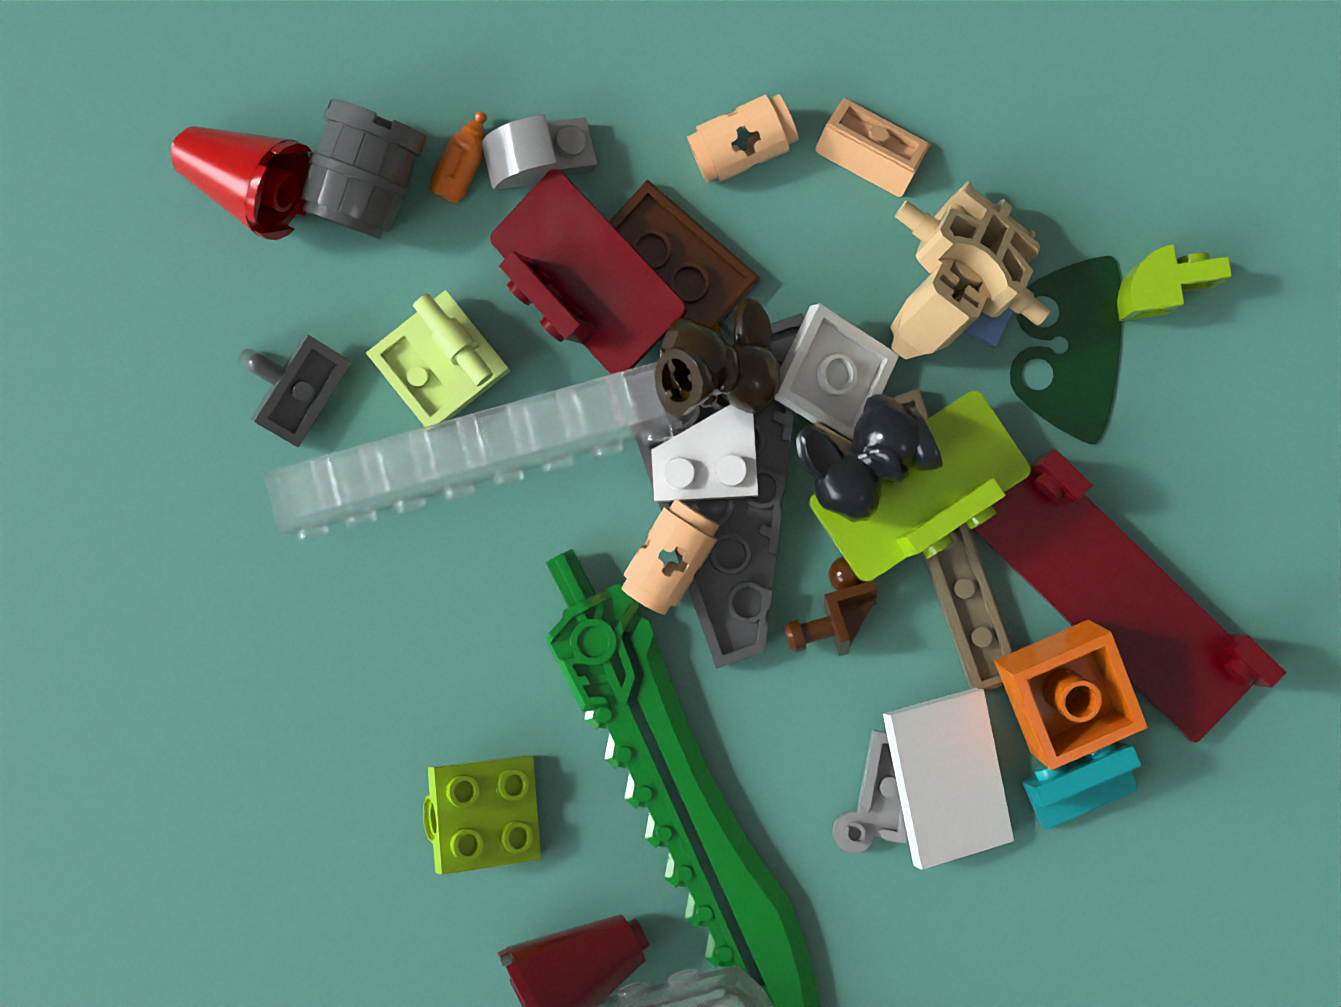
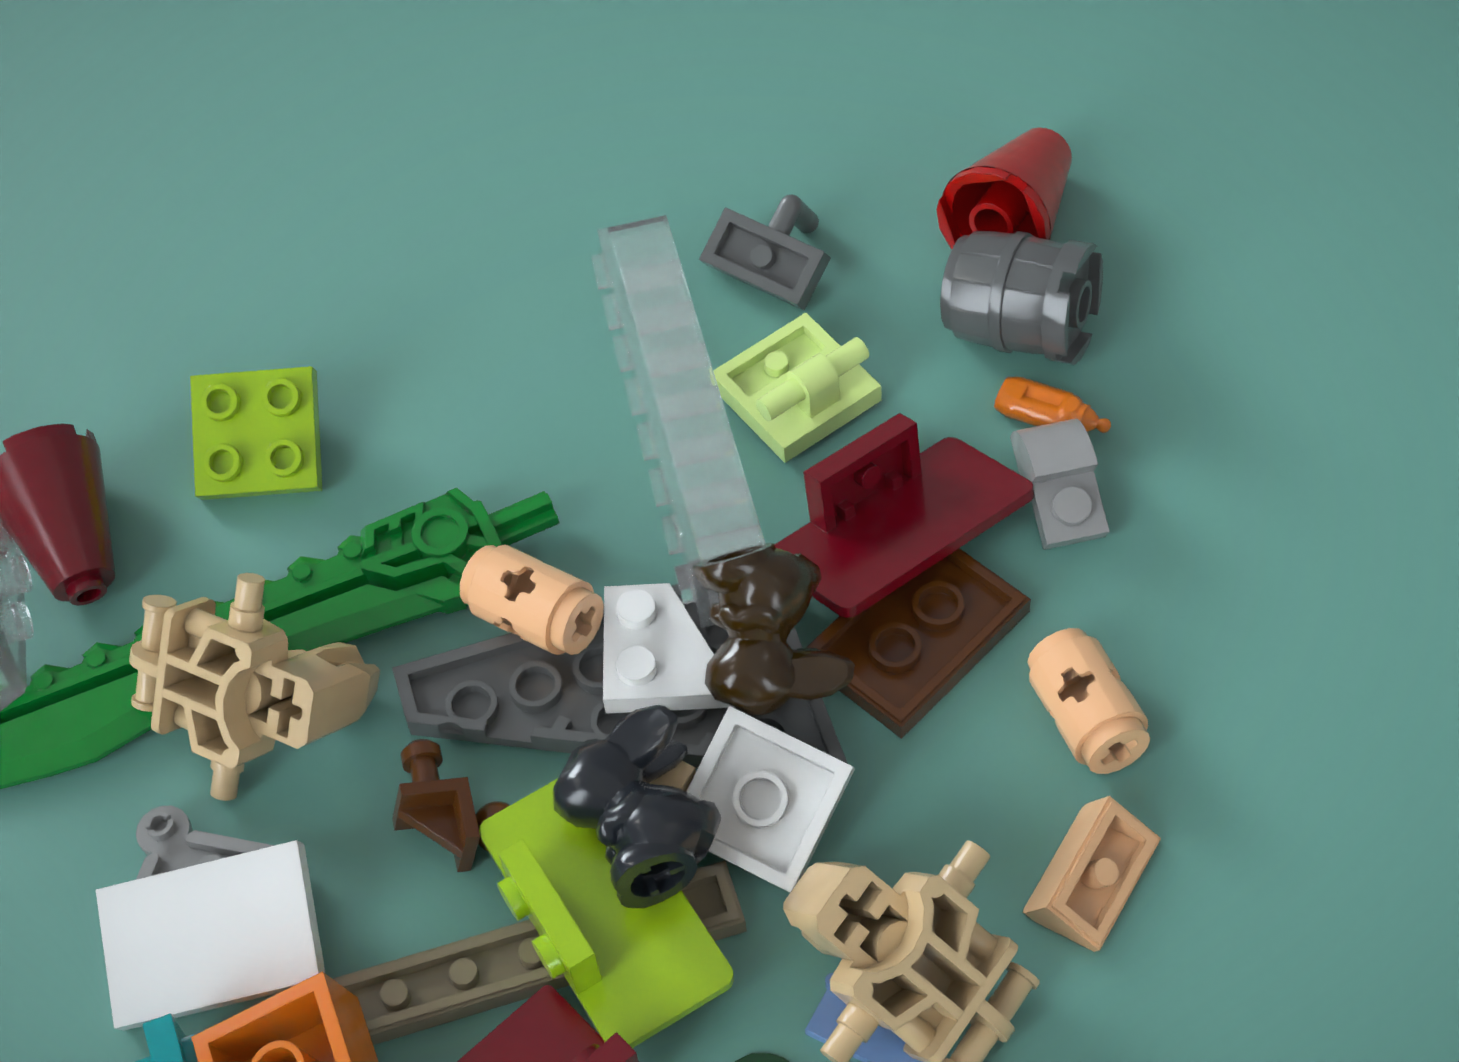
camera: 90 degrees right, 30 degrees down
(755, 776) = (240, 682): none -> tan piece

